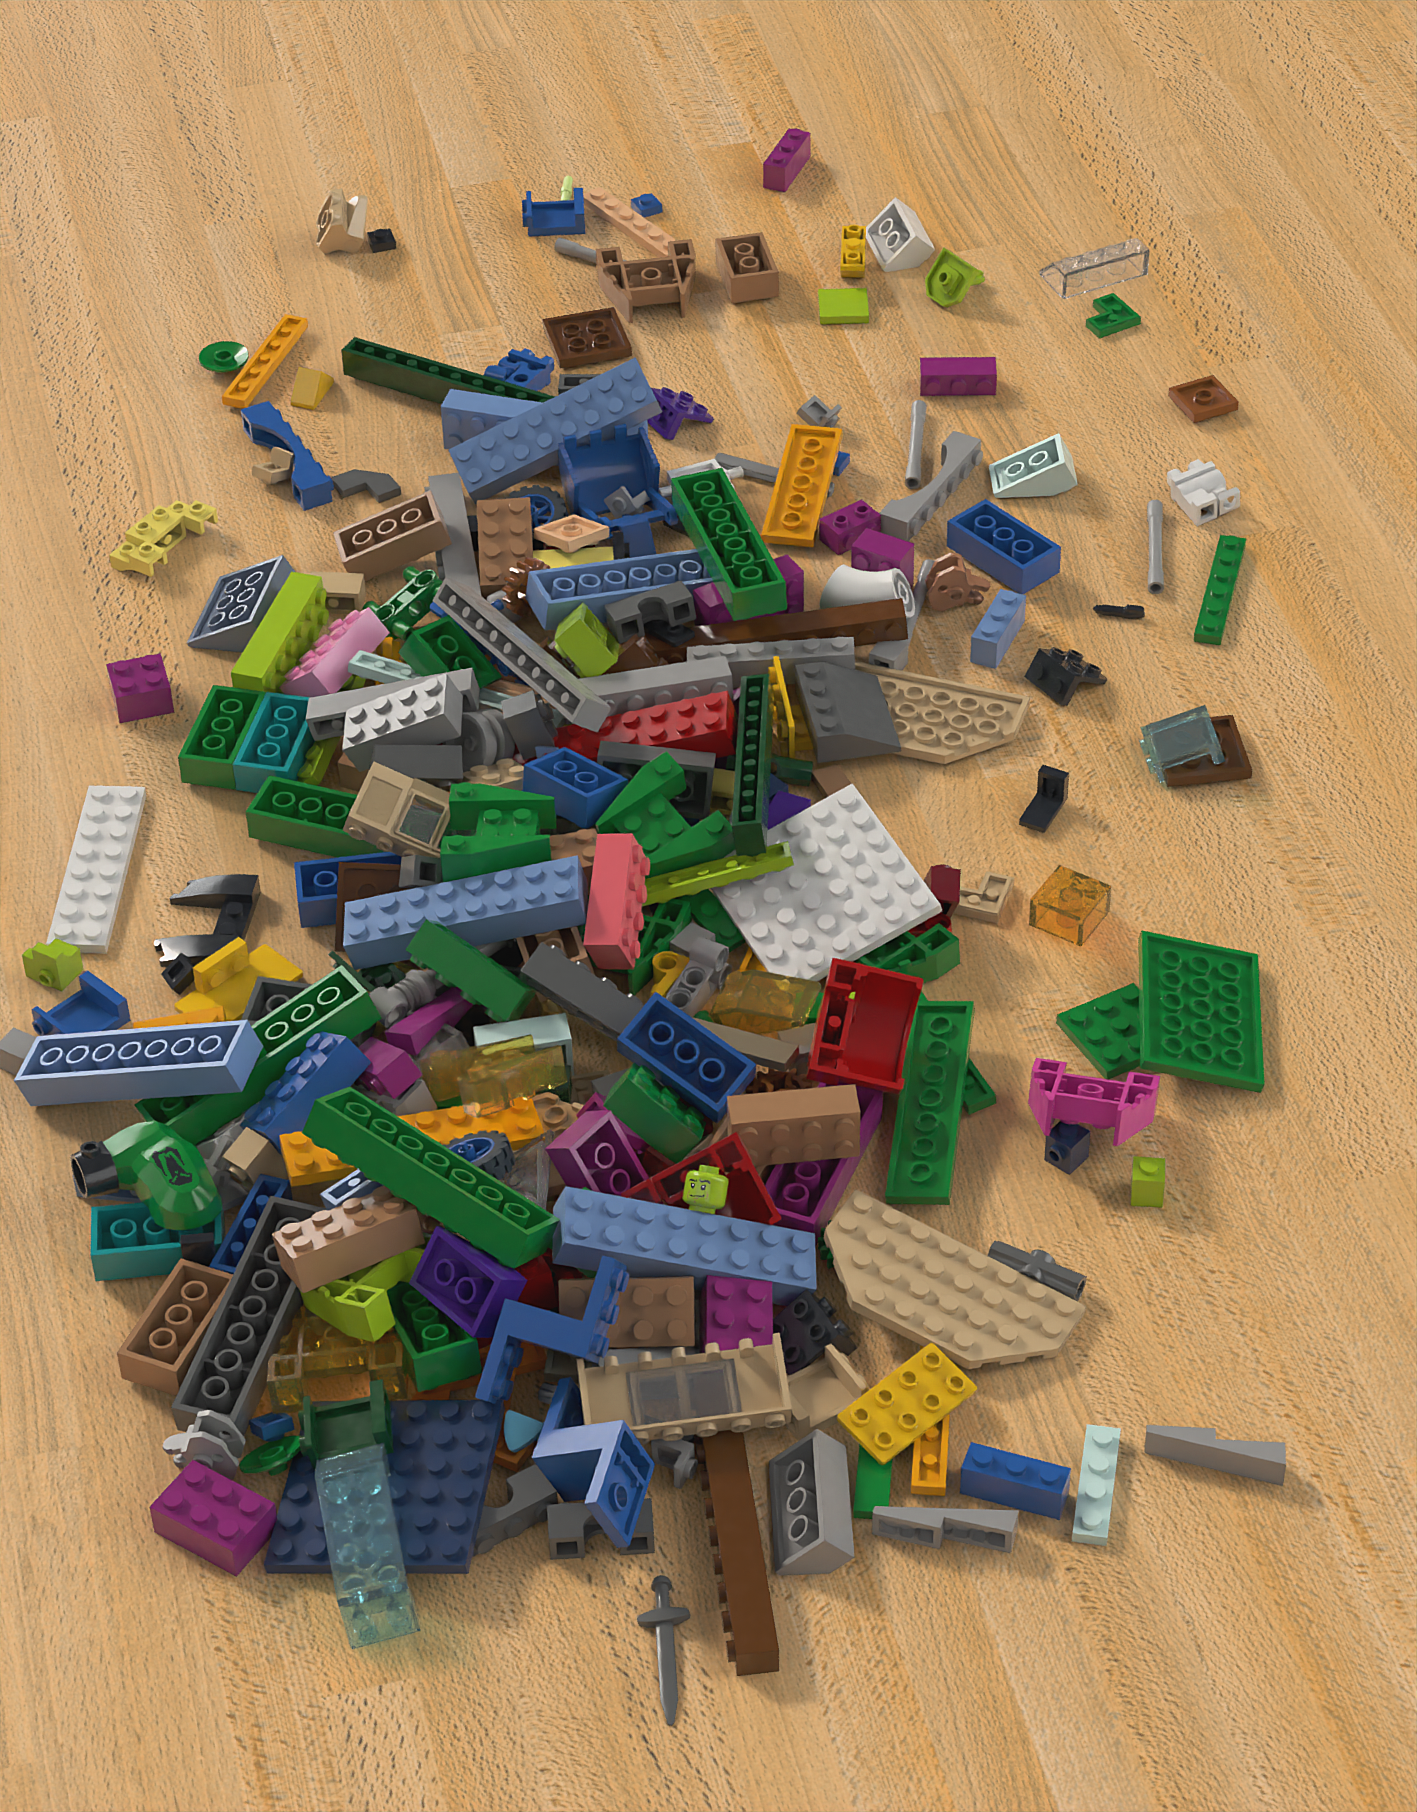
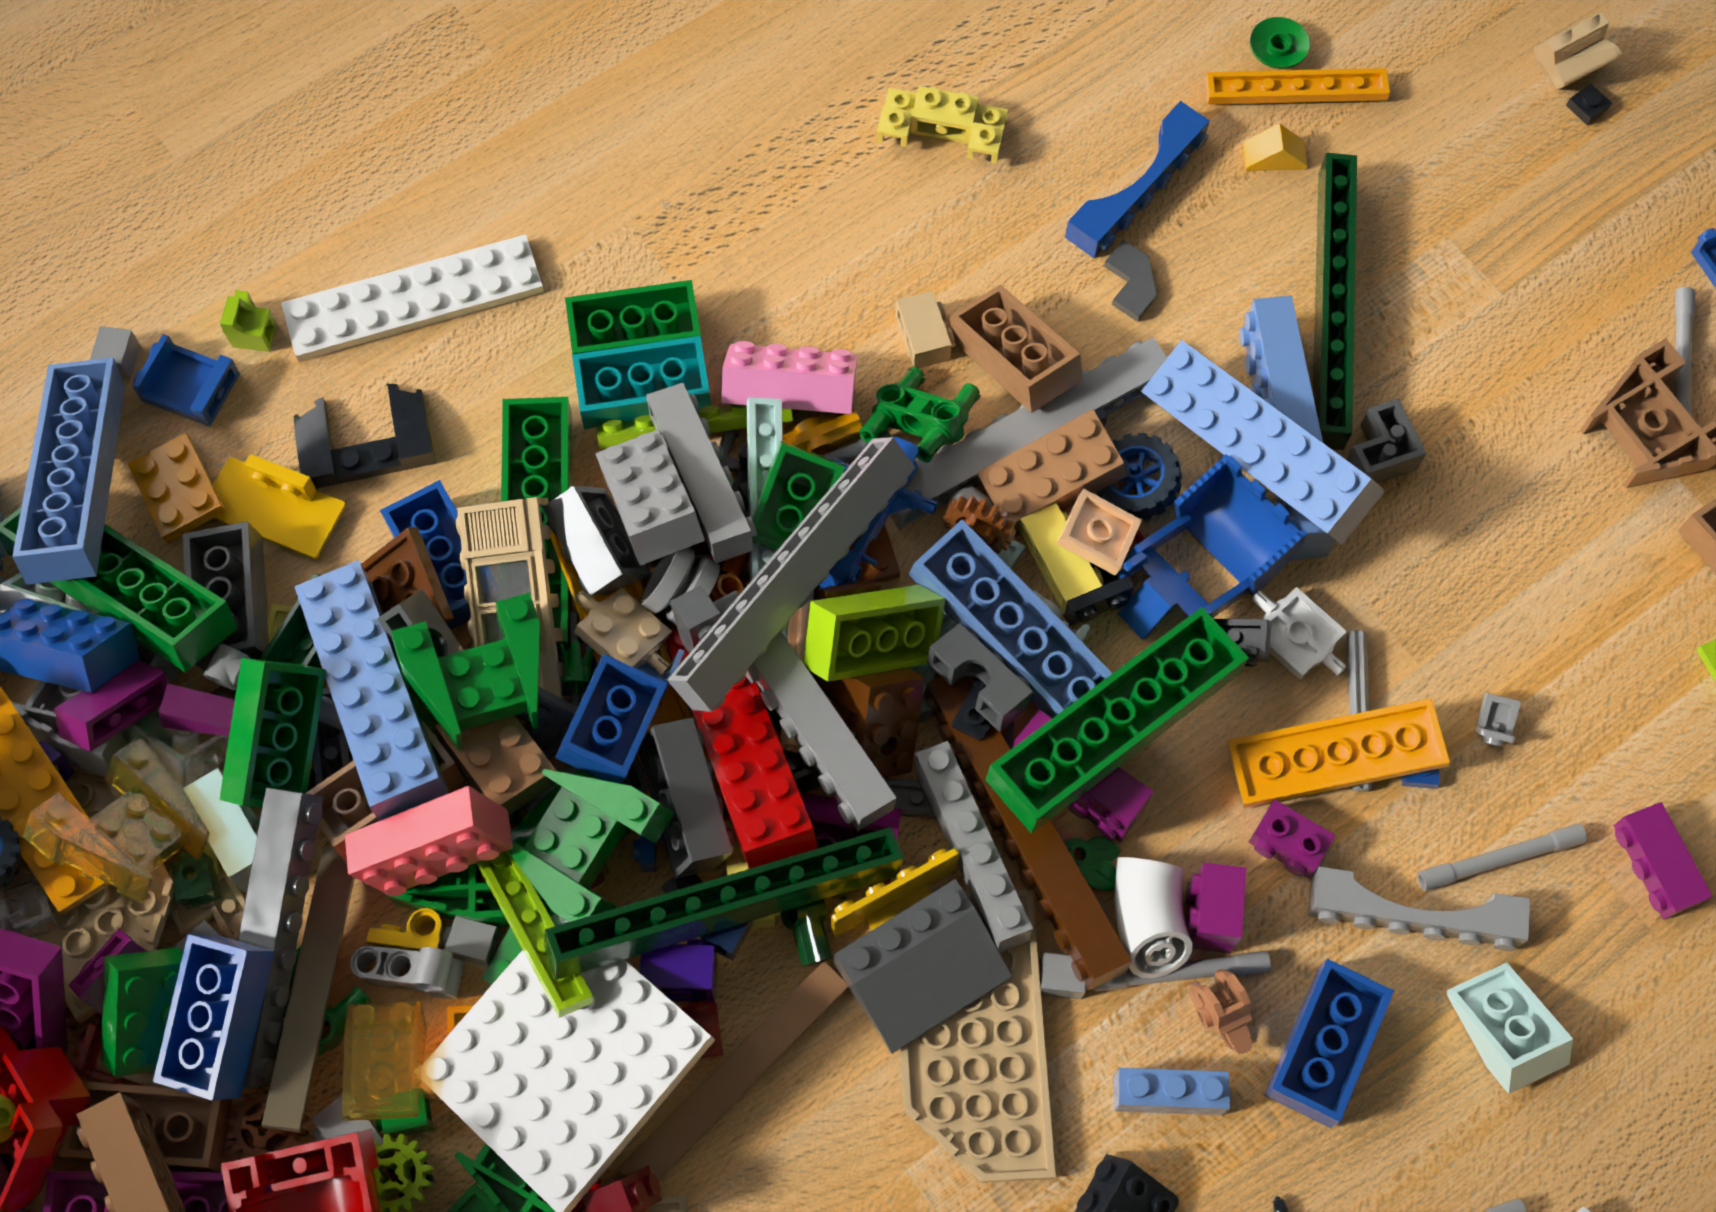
camera: 65 degrees right, 25 degrees up
(140, 688) = (686, 212): magenta brick -> none
(179, 973) = (272, 444): black plate -> none
(239, 605) = (860, 254): sand blue slope -> none
(277, 469) = (1107, 178): tan bracket -> none
(283, 634) = (797, 313): lime brick -> none
(523, 369) = (1409, 359): blue hips -> none
(587, 337) = (1515, 396): reddish brown plate -> none
(622, 503) = (1208, 574): light grey bracket -> none
(675, 408) = (1423, 550): dark purple bracket -> none

